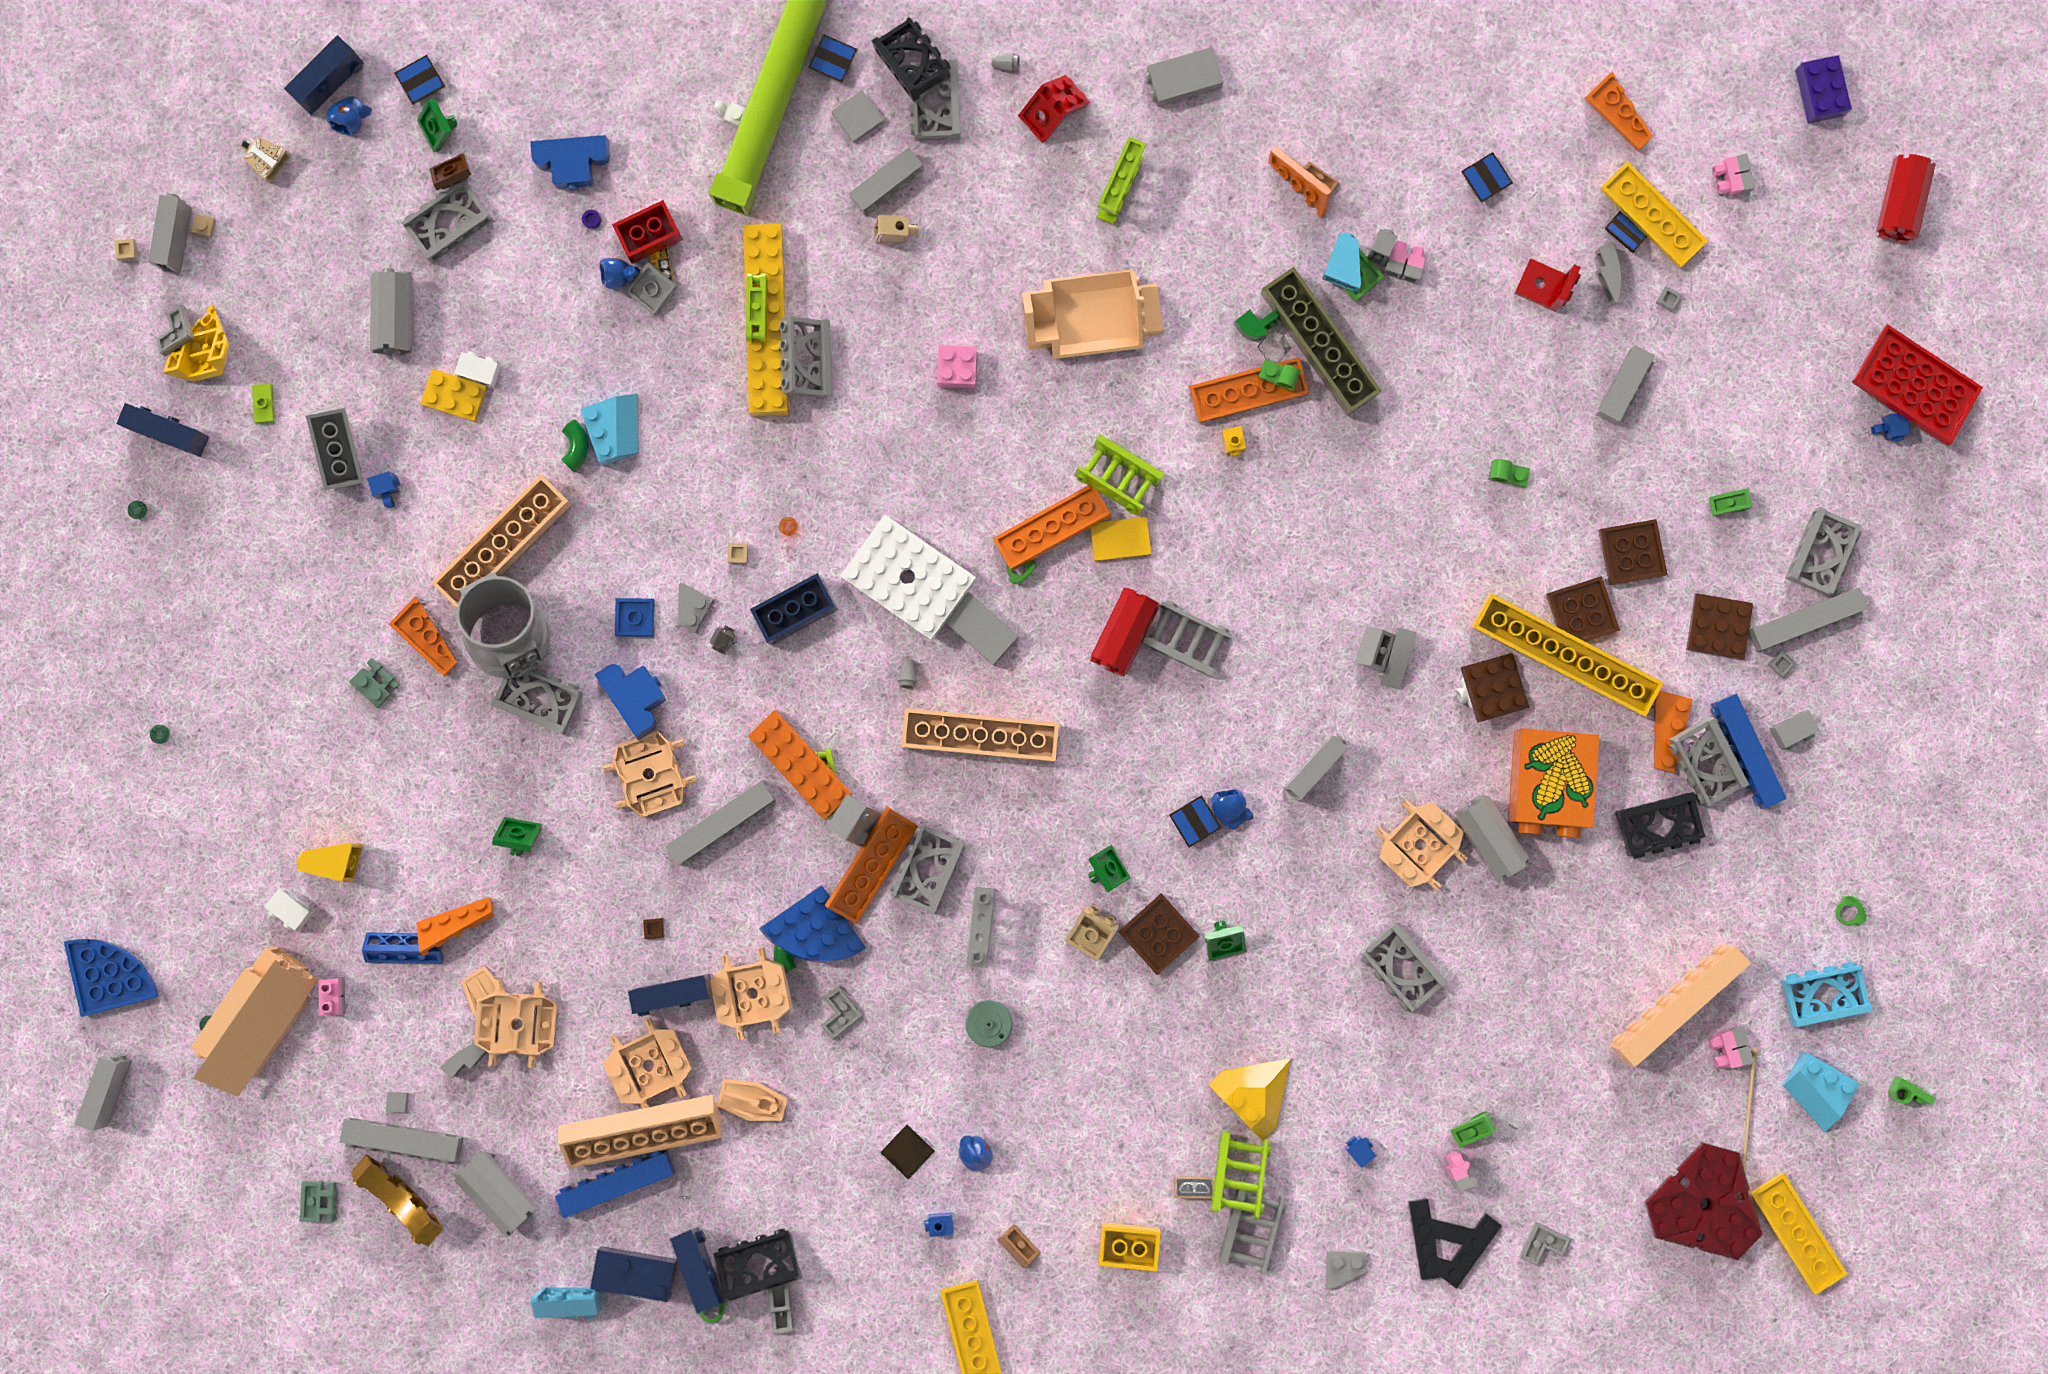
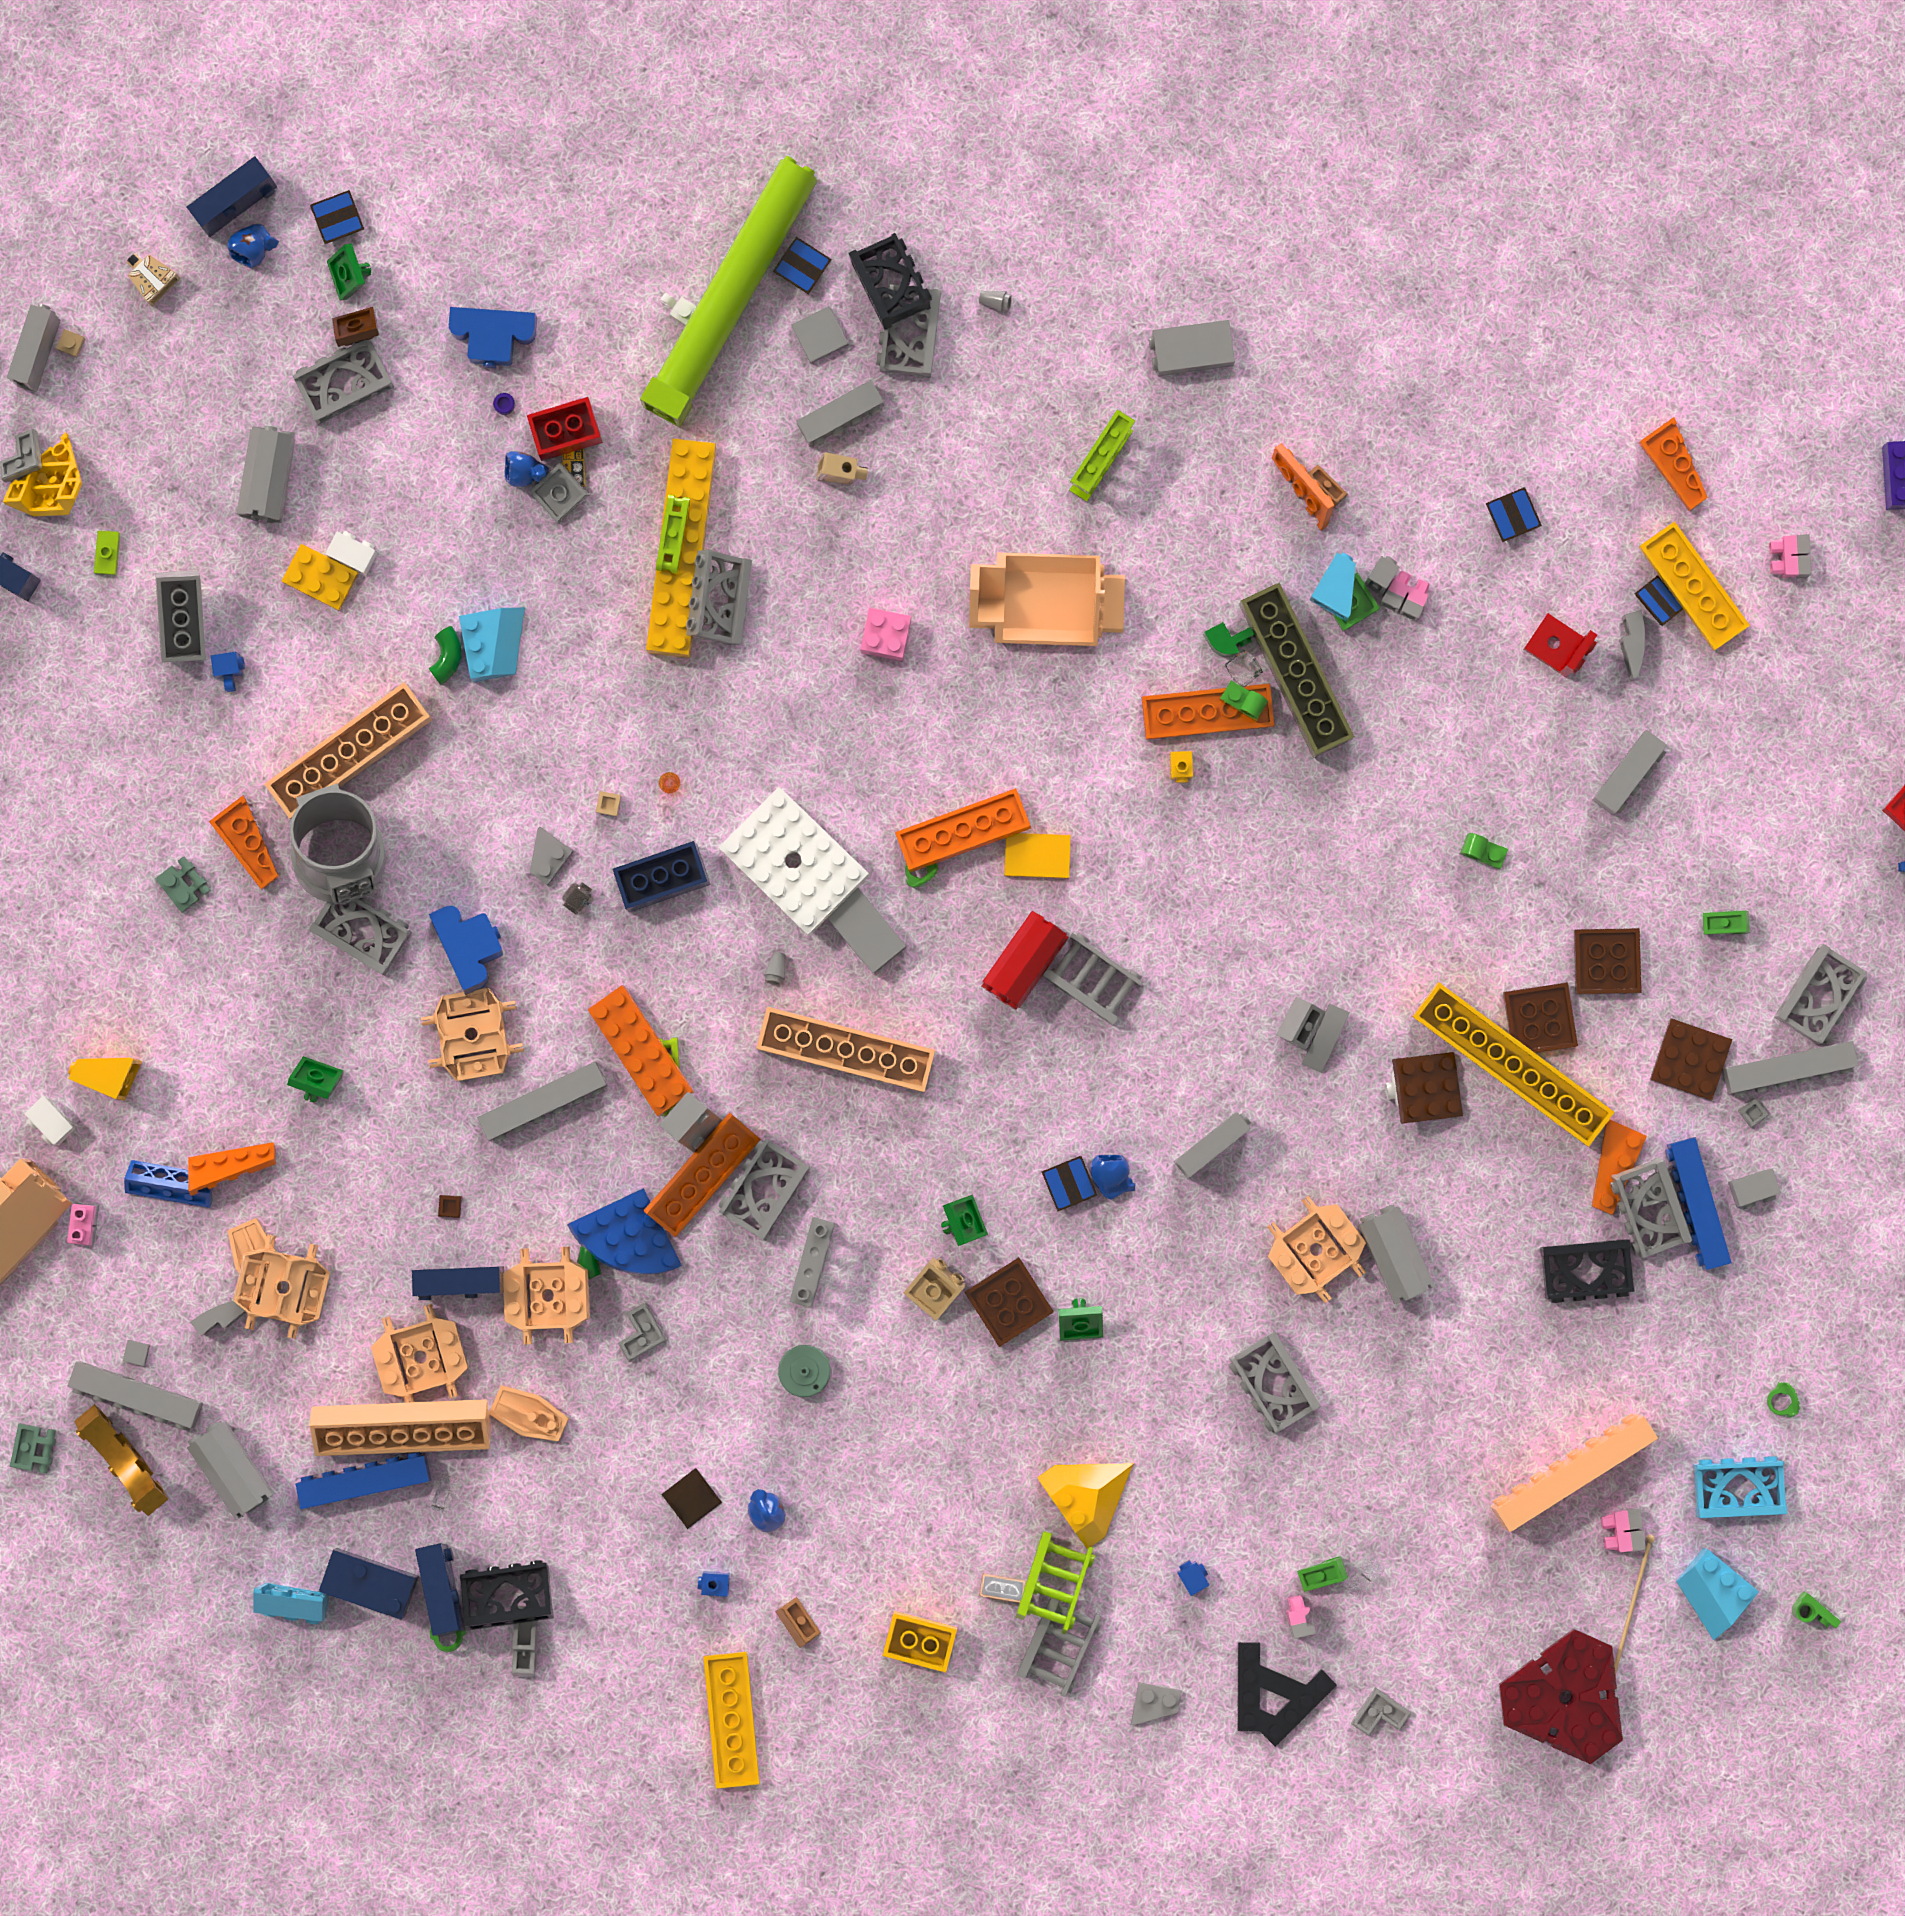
camera: 10 degrees right, 0 degrees up
(634, 617) = (482, 857): blue tile -> none
(1056, 100) = (1041, 358): red bracket -> none
(1119, 457) = (1051, 764): lime fence -> none
(1553, 781) = (1474, 1202): brick -> none
(1669, 299) = (1696, 683): light grey tile -> none
(1798, 1233) = (1664, 1747): yellow plate -> none

